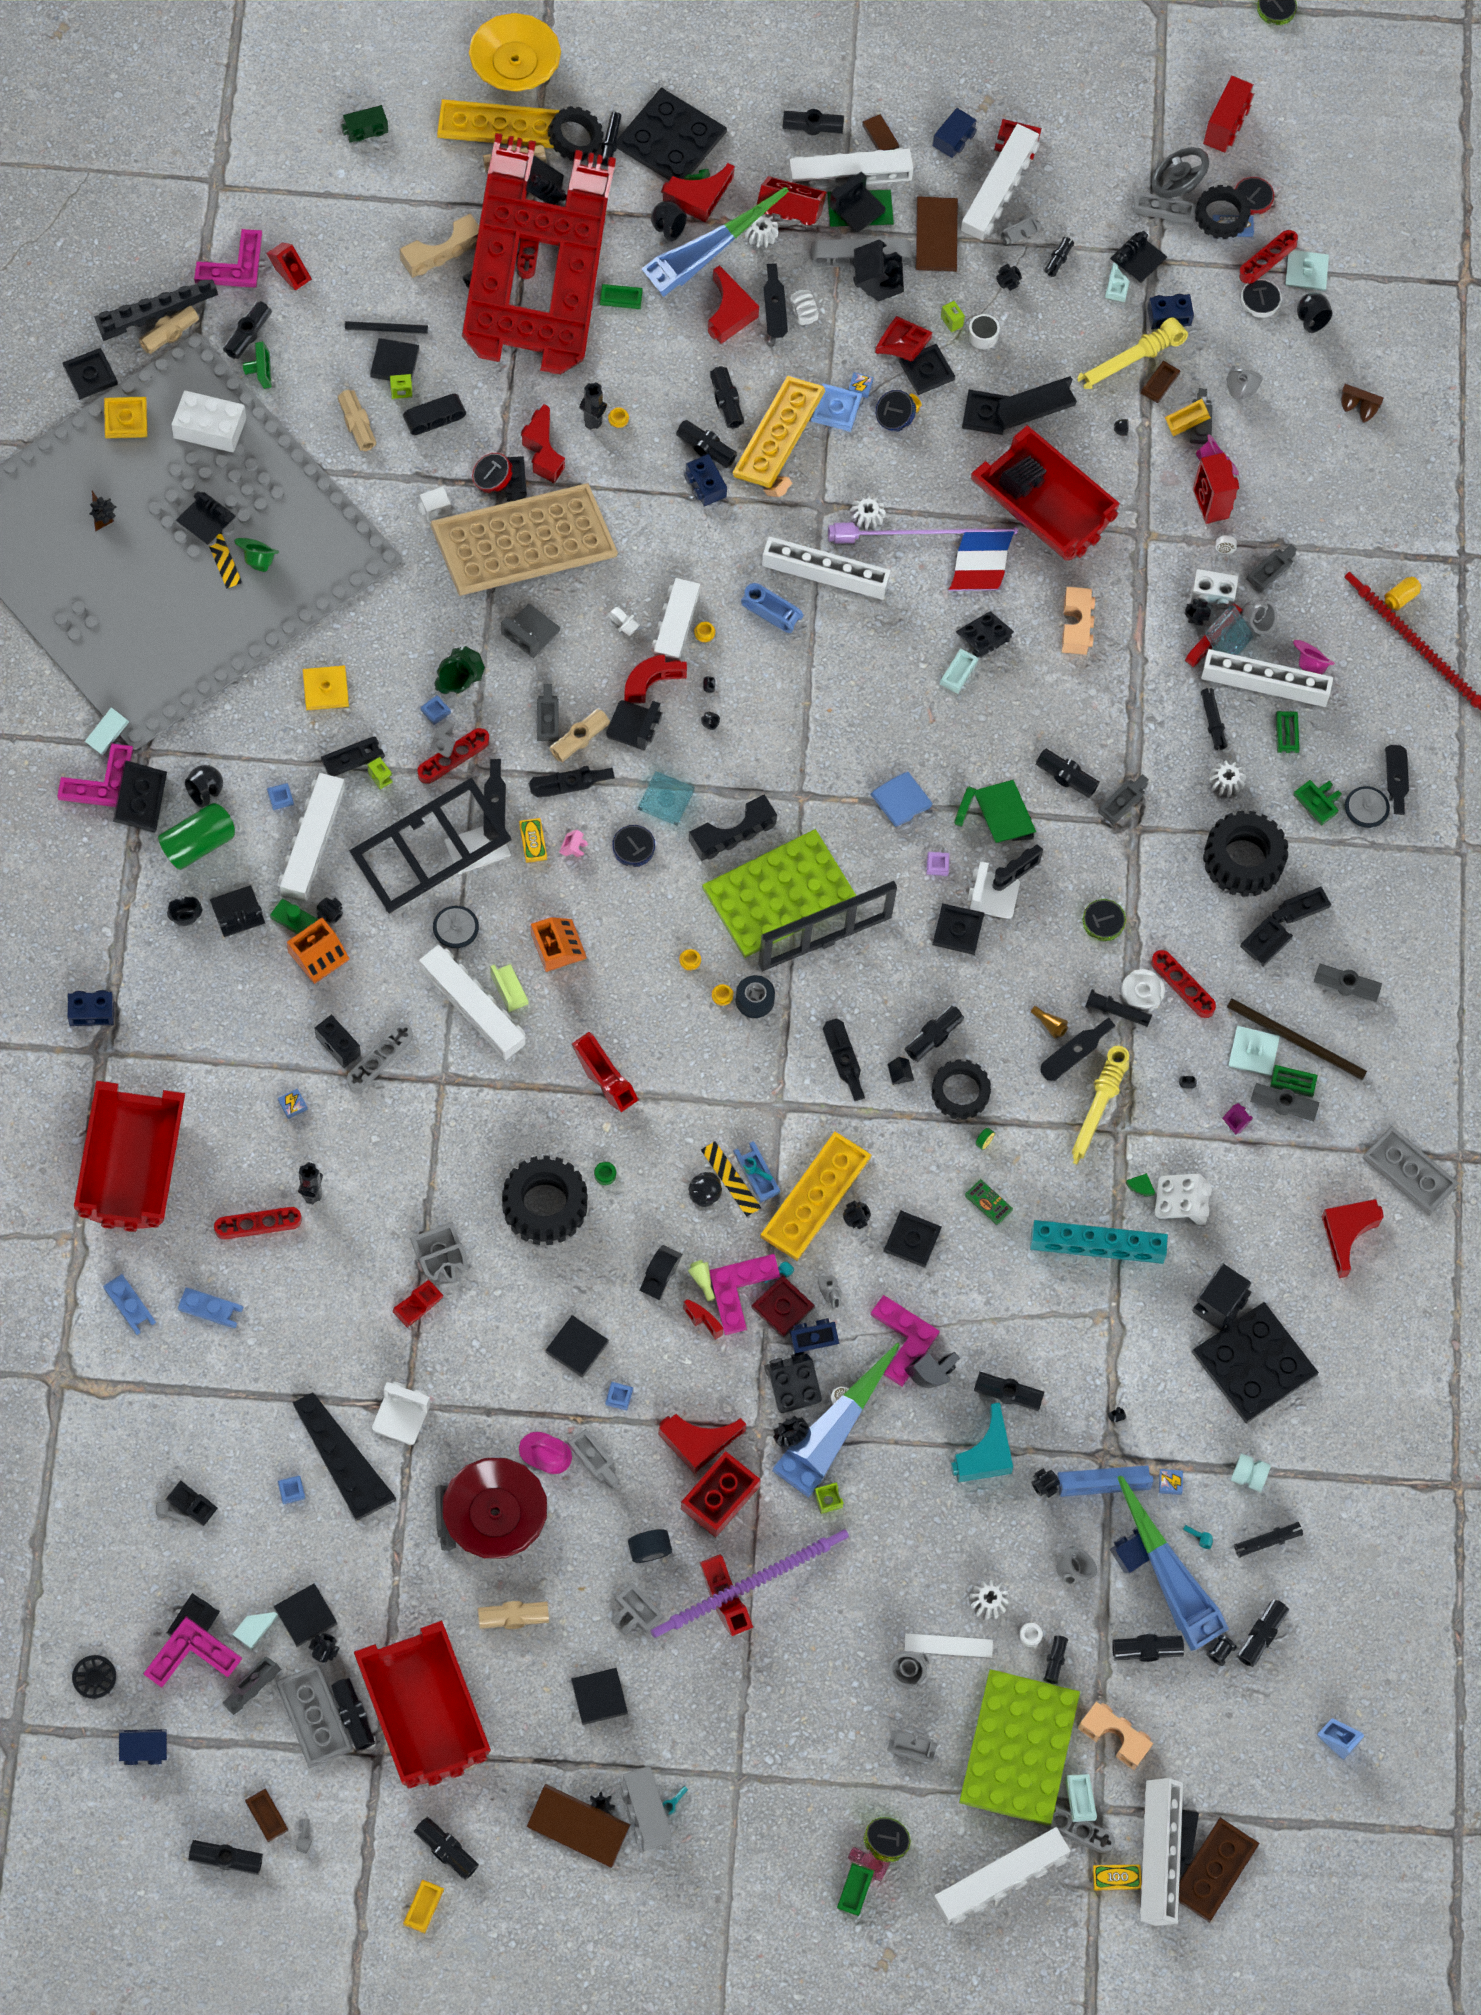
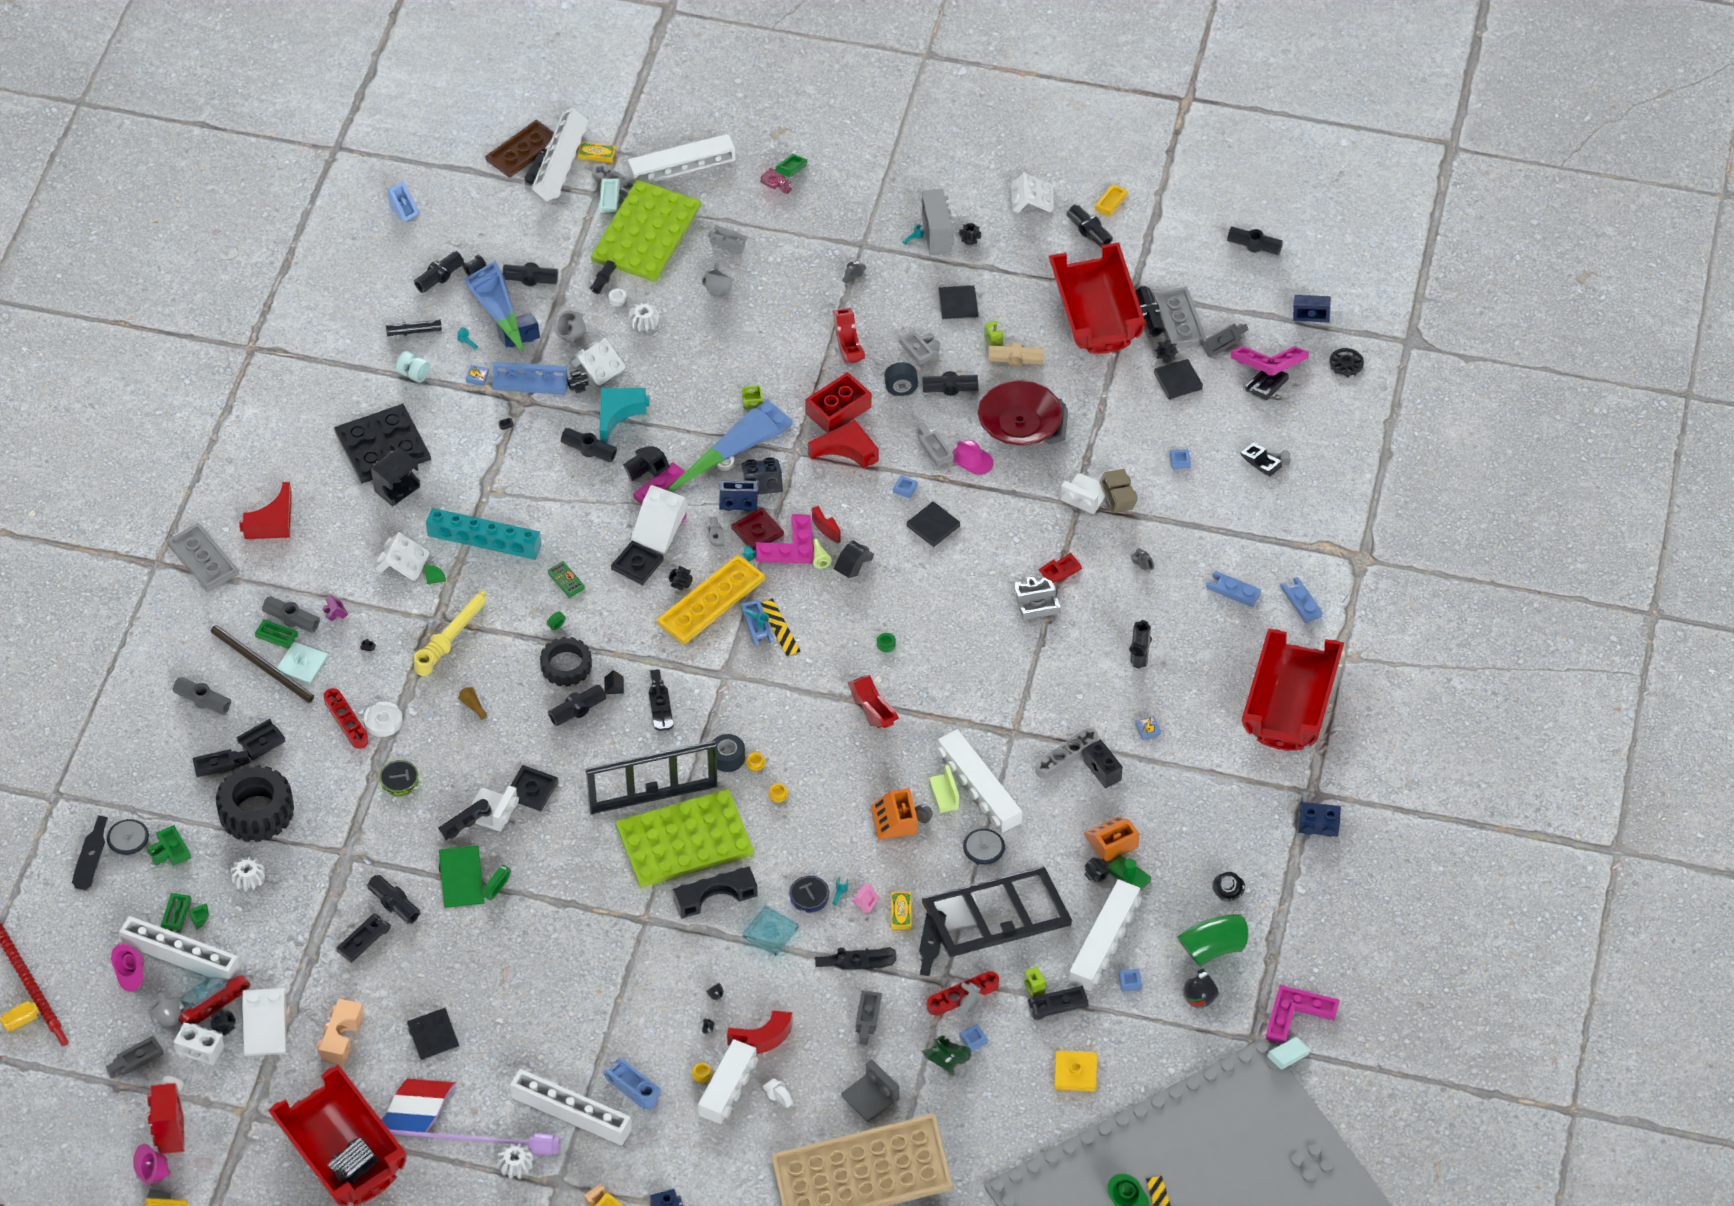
camera: 165 degrees left, 15 degrees down
(140, 796) = (1262, 991): black tile -> none
(237, 911) = (1180, 885): black hinge -> none
(253, 1628) = (1221, 375): light aqua tile -> none
(258, 1226) = (1188, 646): red beam -> none
(266, 1815) = (1221, 265): reddish brown tile -> none
(302, 1843) = (1196, 245): light grey hand -> none
(323, 1331) = (1143, 559): none -> dark grey piece
(351, 1472) = (1126, 454): black wing -> none
(360, 1415) = (1118, 491): none -> dark tan piece
(527, 954) = (923, 813): none -> dark grey plate
(528, 1891) = (1033, 191): none -> white bracket
(544, 1173) = (938, 636): black tyre -> none
(546, 1642) = (993, 337): none -> lime piece
(570, 743) = (832, 995): tan piece -> none
(578, 1825) = (988, 222): reddish brown tile -> none
(588, 1556) = (950, 383): none -> black piece
(602, 855) = (841, 888): none -> teal hand
(634, 724) = (786, 993): black bracket -> none
(705, 1189) = (803, 617): black hair -> none
(738, 1728) = (854, 270): none -> dark grey piece
(789, 1438) = (764, 437): black gear -> none
(822, 1545) = (890, 315): medium lavender hose -> none
(887, 1839) = (760, 188): black tile -> none
(898, 1289) = (659, 519): none -> white slope
(901, 799) = (553, 898): medium blue slope -> none
(938, 863) = (534, 843): lavender tile -> none
(949, 1645) = (683, 301): white sticker -> none
(959, 671) = (467, 1007): light aqua tile -> none
(1029, 1521) = (599, 361): none -> white bracket
(1066, 1057) = (465, 672): black piece -> none
(1086, 727) = (363, 937): none -> black plate
(1102, 1720) = (579, 235): light nougat arch -> none
(1108, 1005) = (418, 707): black pin -> none
(1123, 800) = (348, 871): dark grey hinge -> none
(1157, 623) = (264, 1021): none -> white slope
(1215, 726) = (241, 925): black pin -> none
(1262, 732) = (199, 915): none -> green tile

